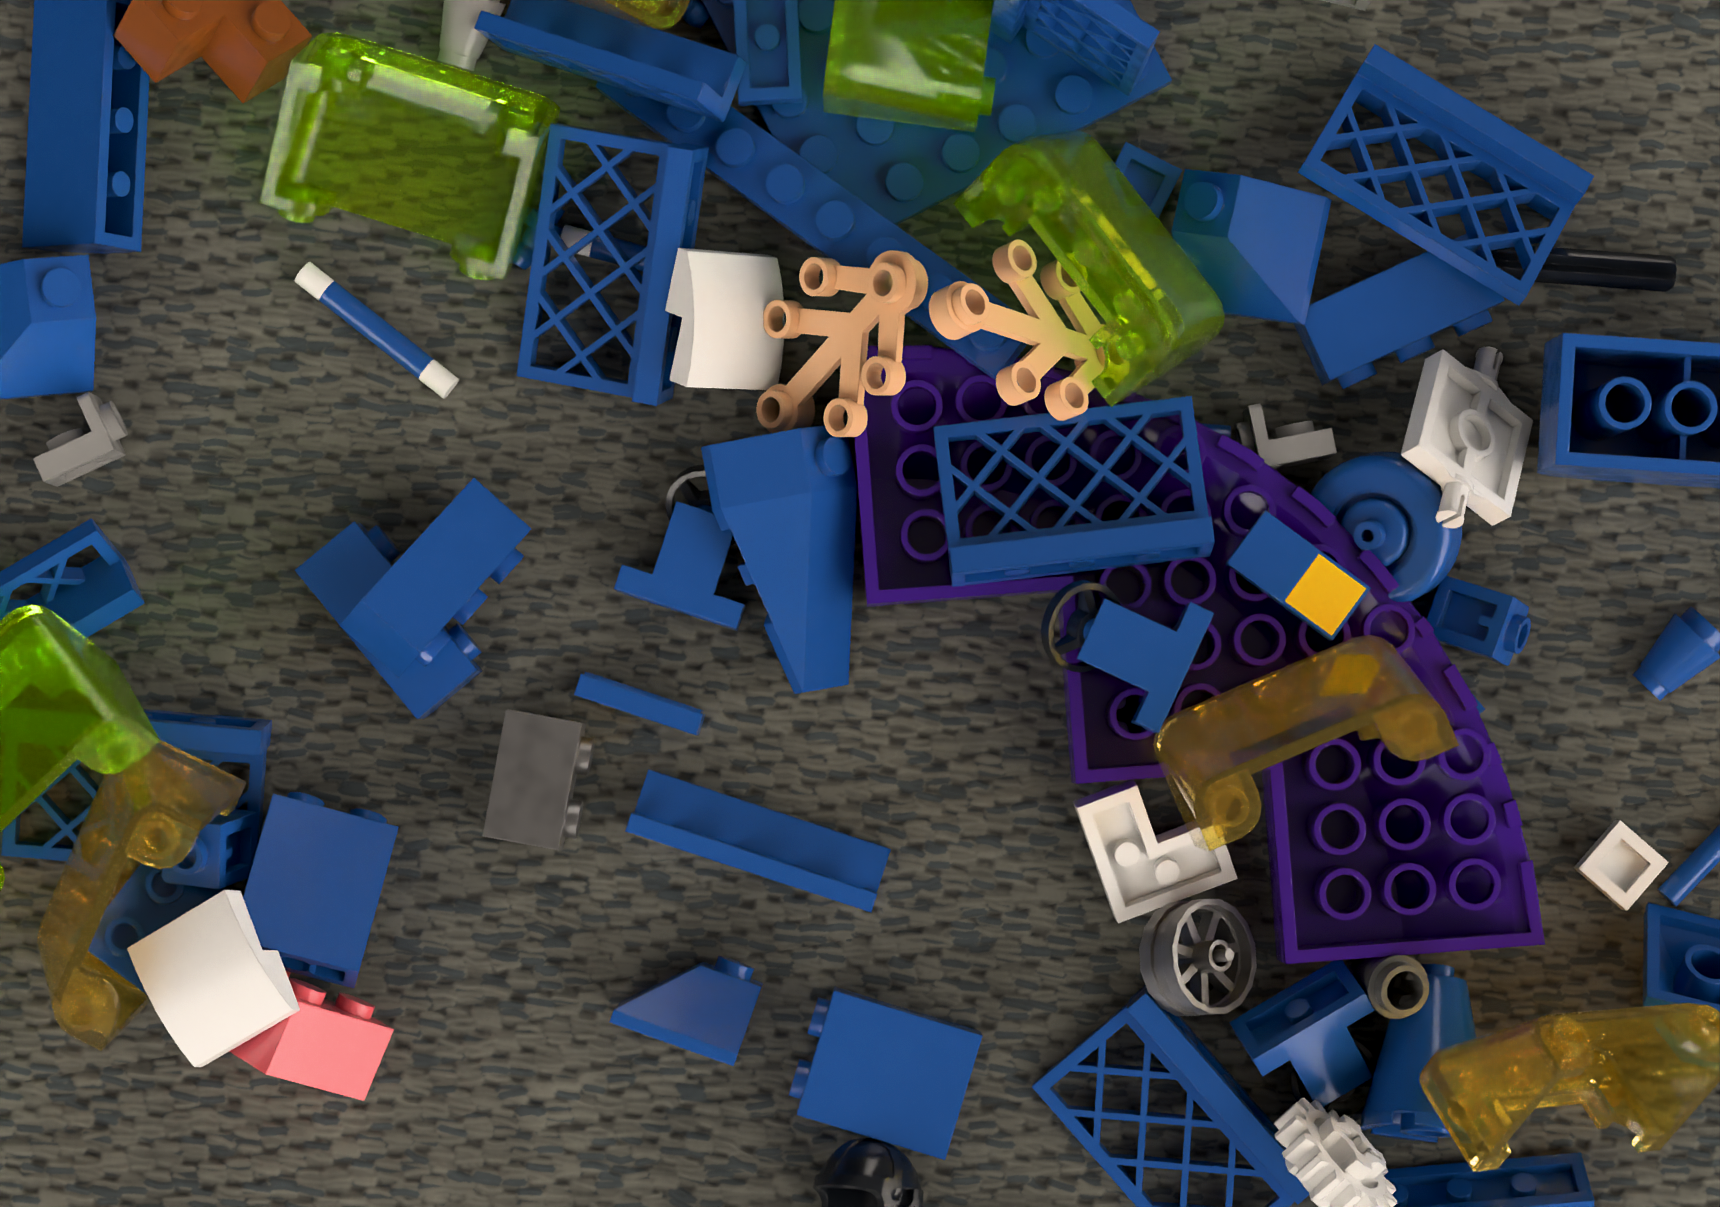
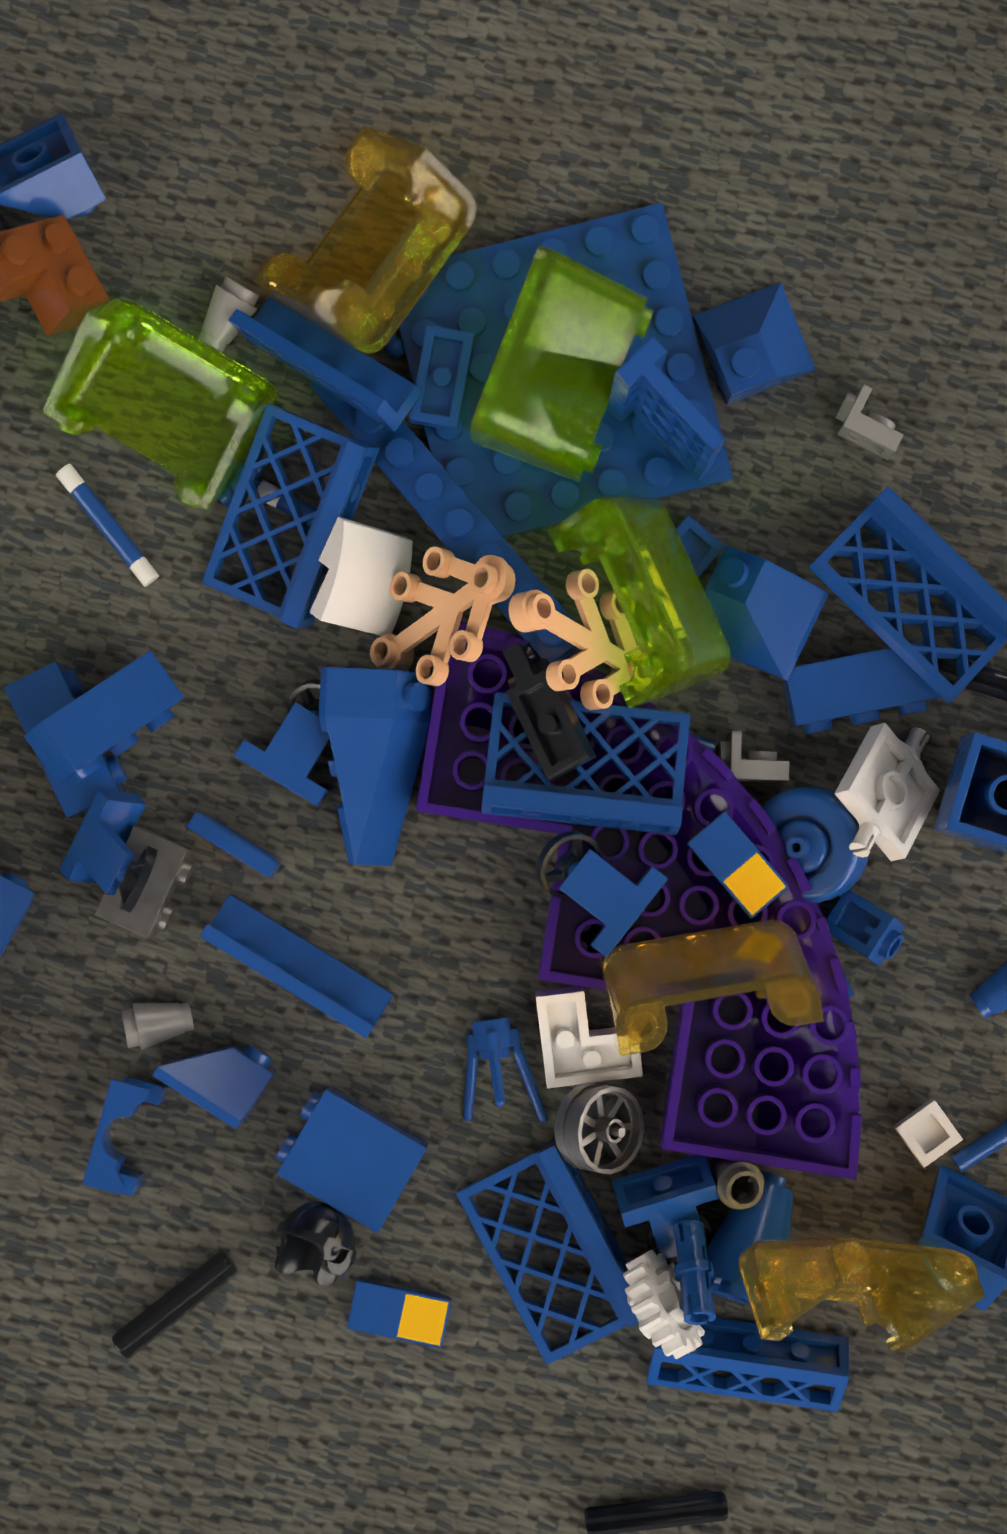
camera: 20 degrees right, 0 degrees up
(473, 752) = (101, 850): none -> blue piece
(573, 1152) = (105, 1163): none -> blue piece
(591, 958) = (156, 1022): none -> light grey cone
(1007, 439) = (545, 714): none -> black hinge
(1034, 879) = (493, 1042): none -> blue plant
(1365, 1111) = (694, 1272): none -> blue pin

